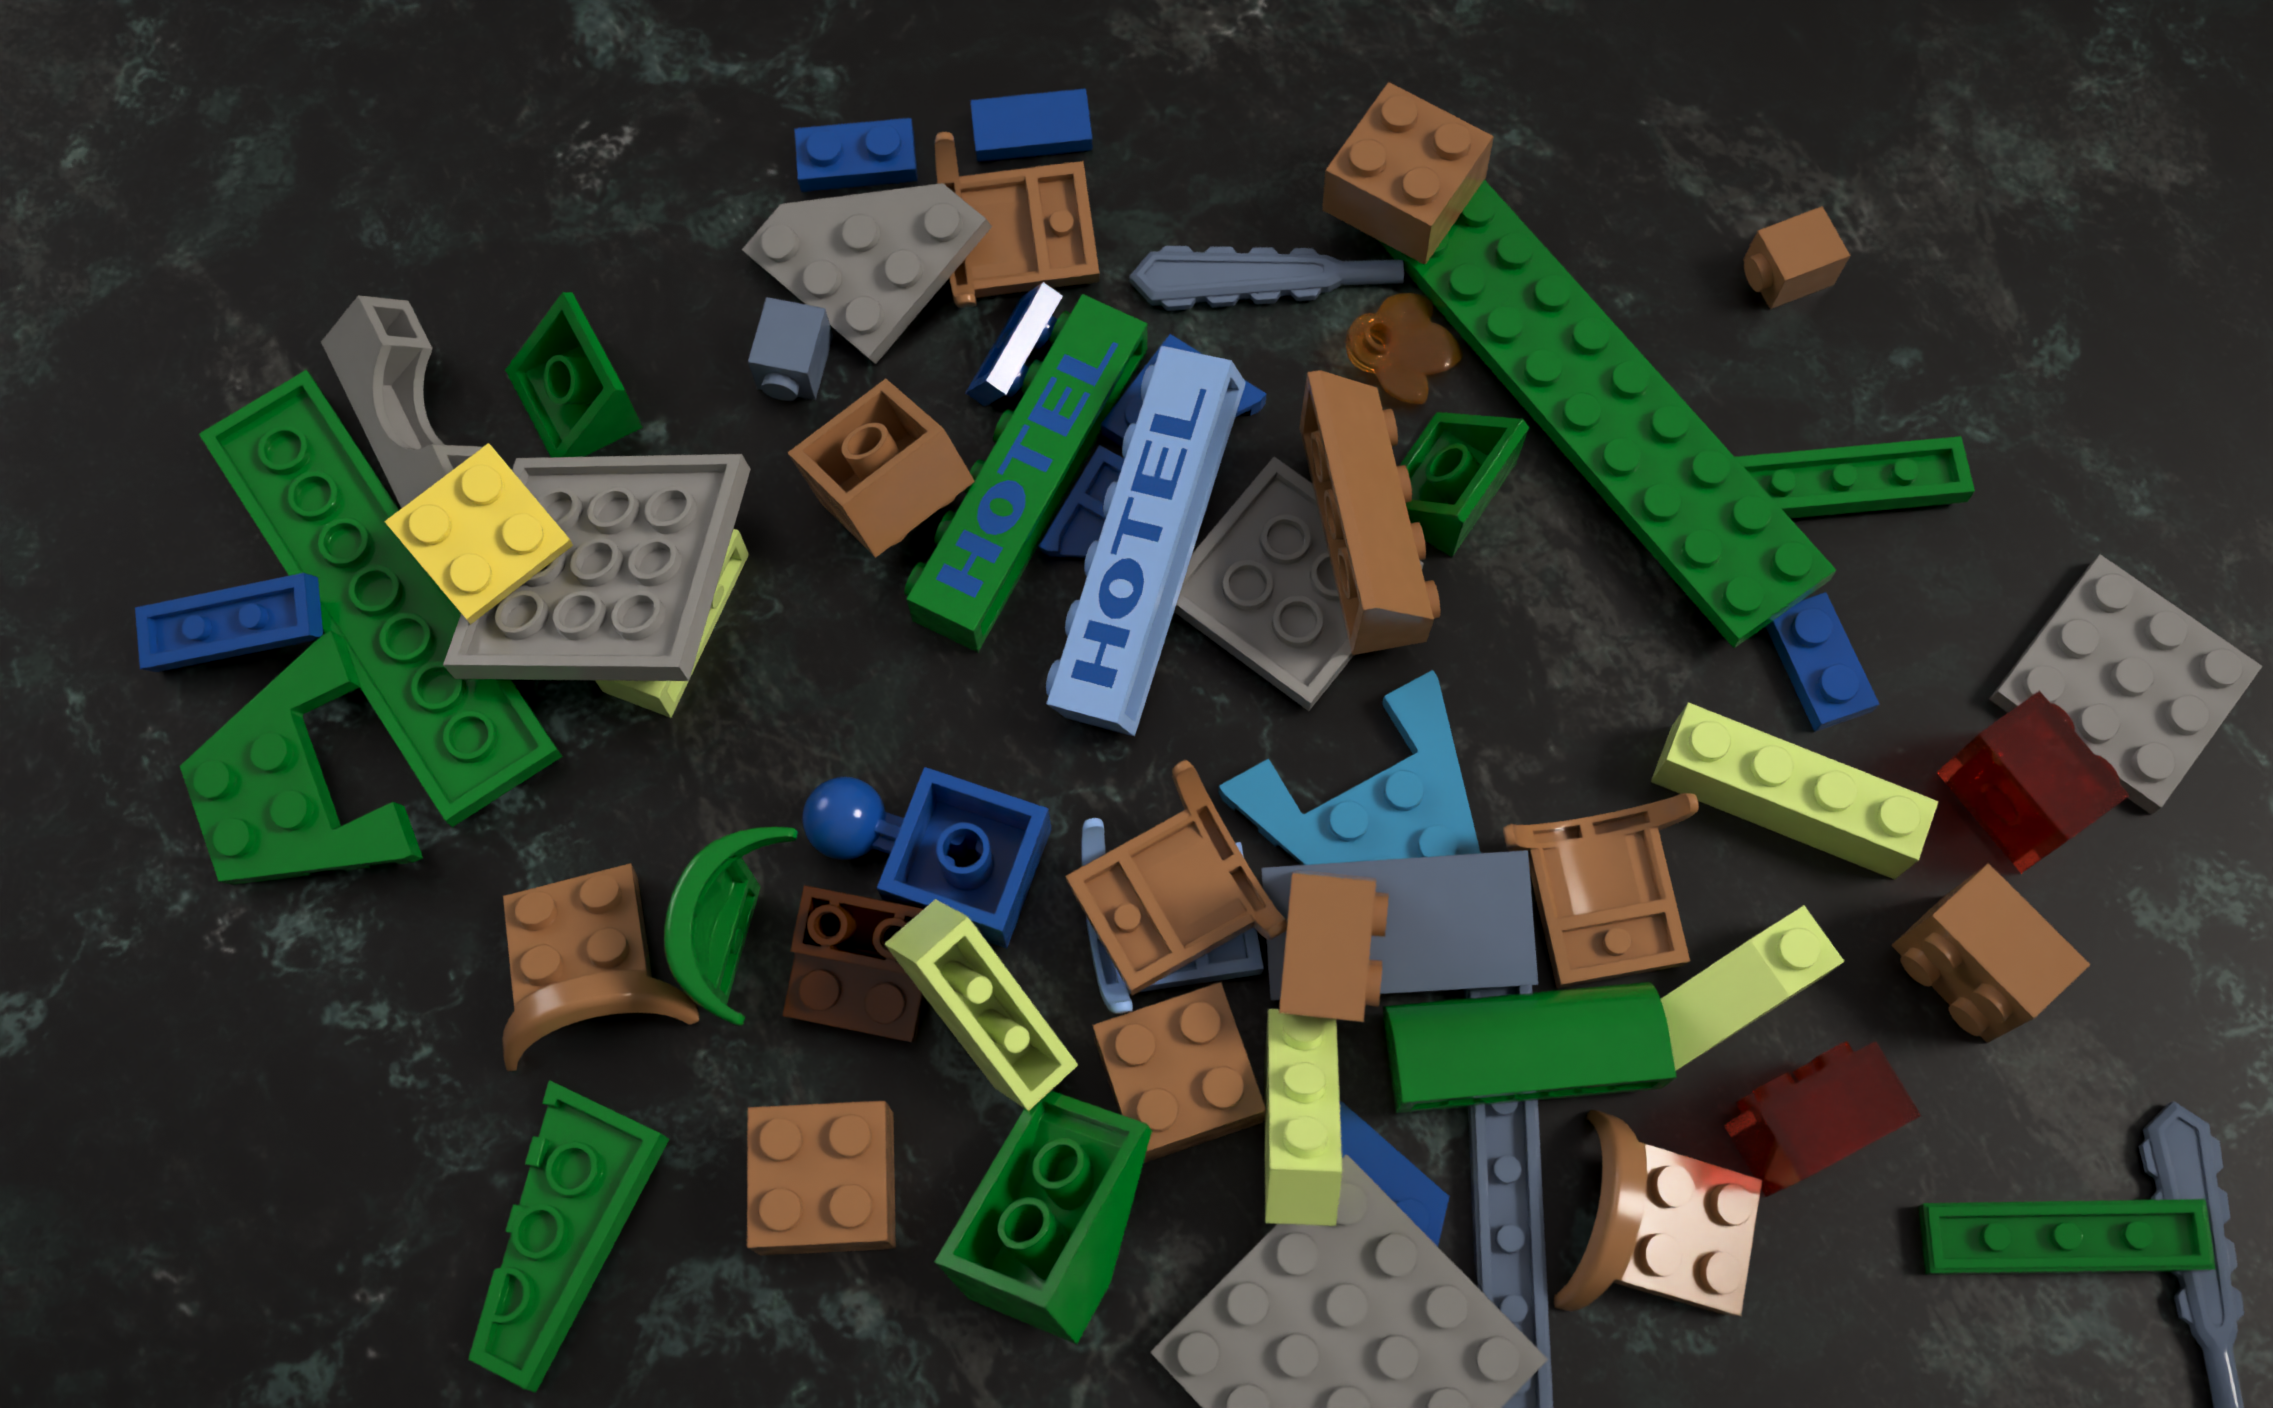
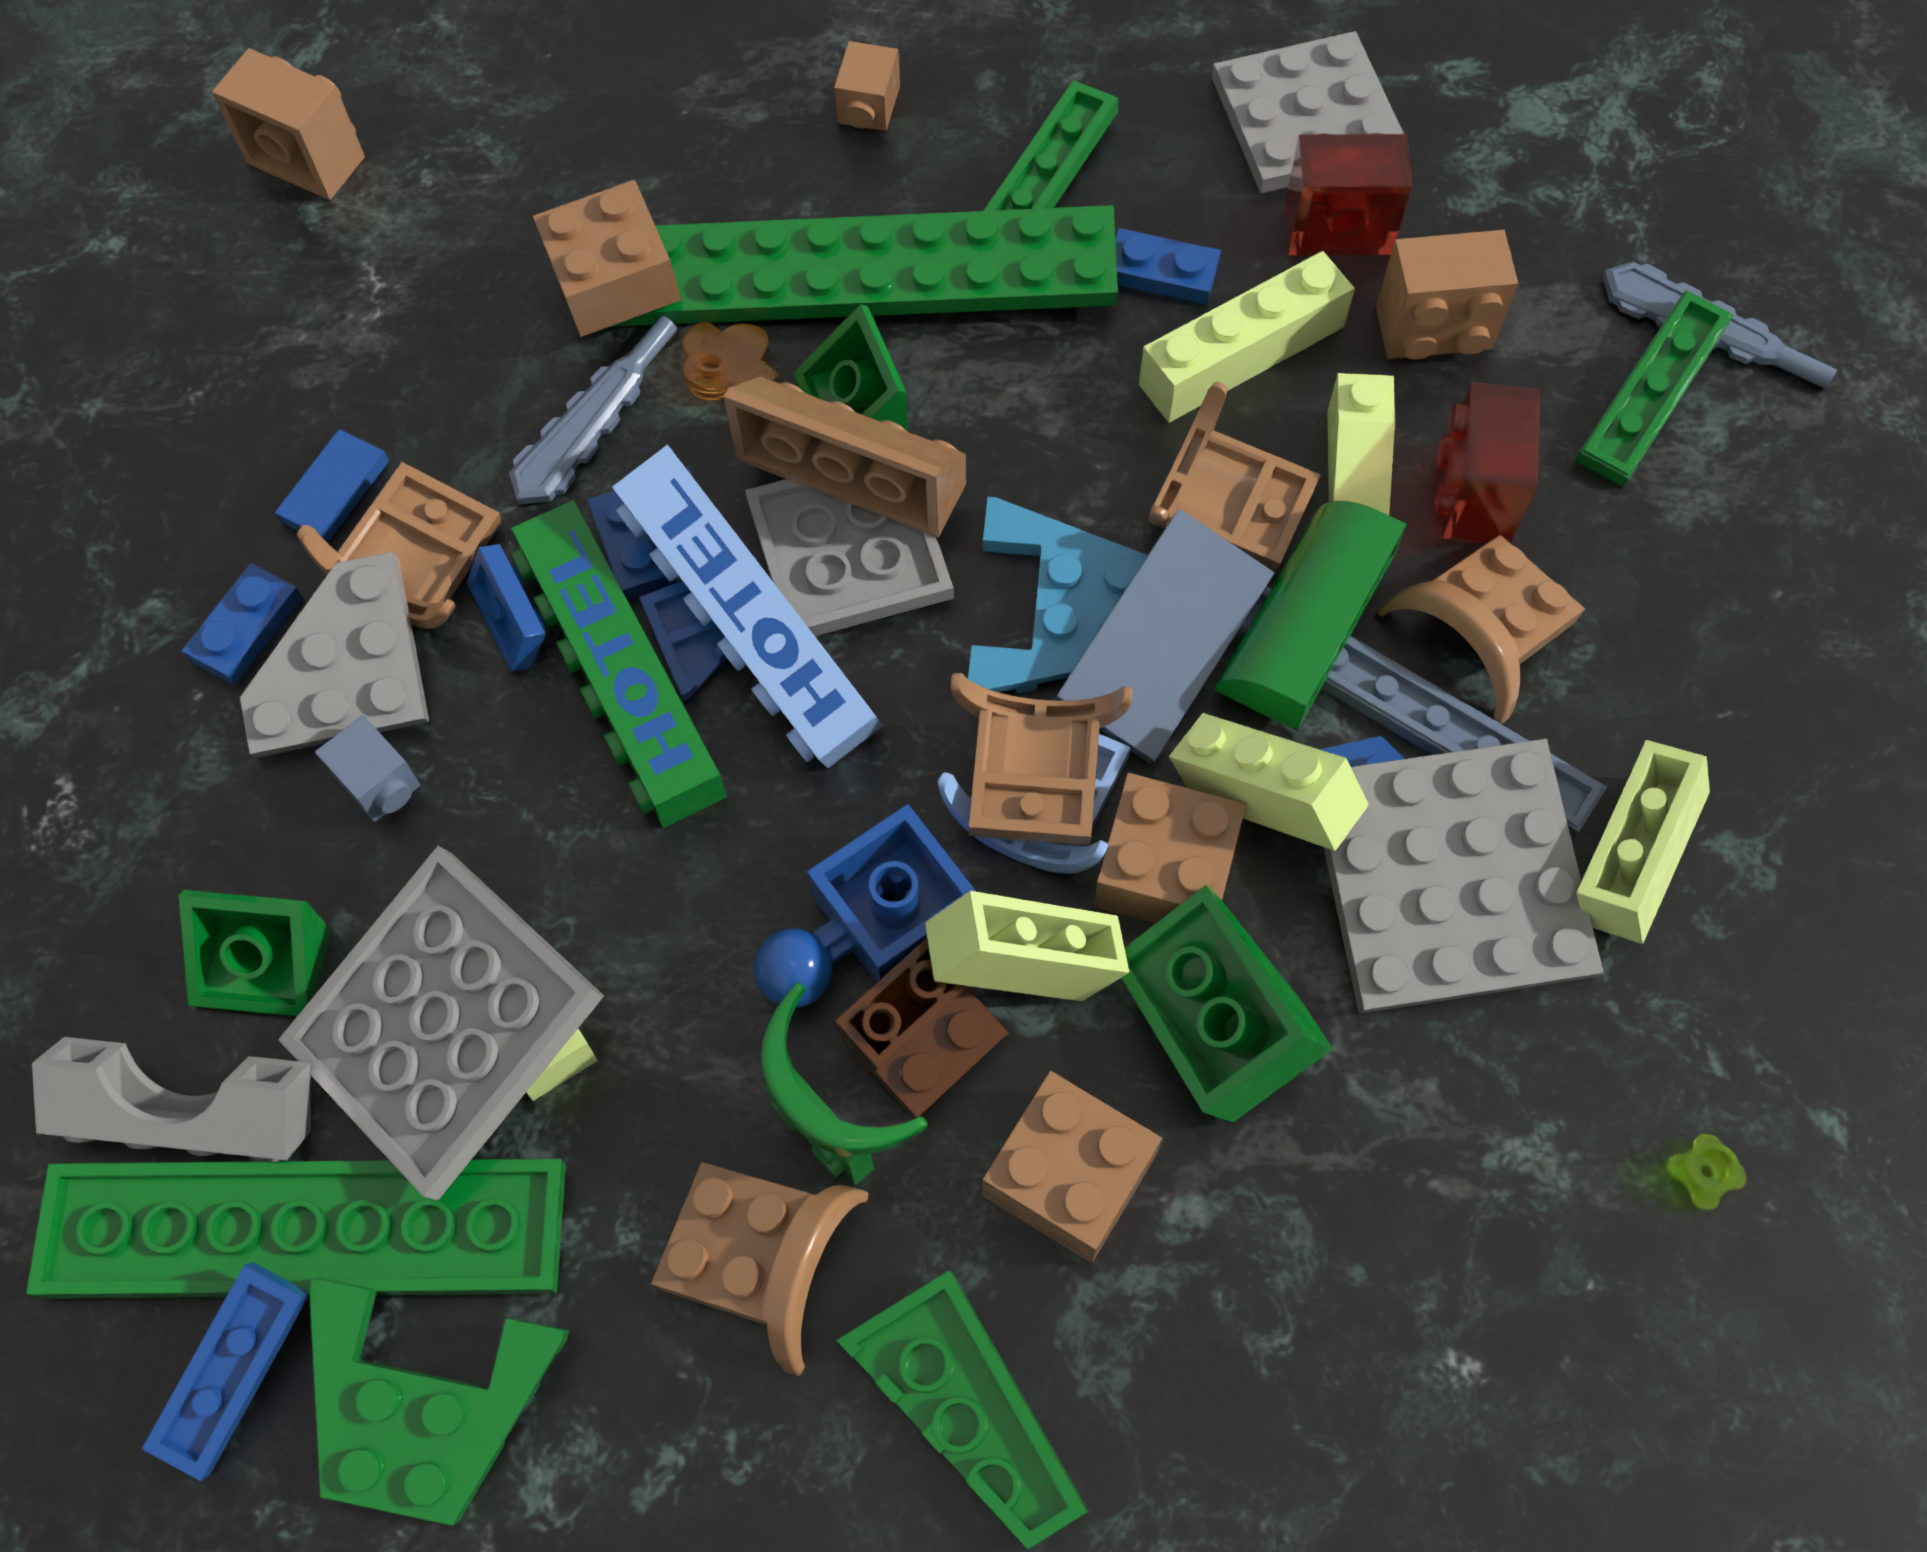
camera: 55 degrees left, 5 degrees down
(479, 533) = (334, 1091): light yellow plate -> none
(881, 467) = (531, 755): medium nougat brick -> none
(1329, 945) = (1167, 666): medium nougat brick -> none

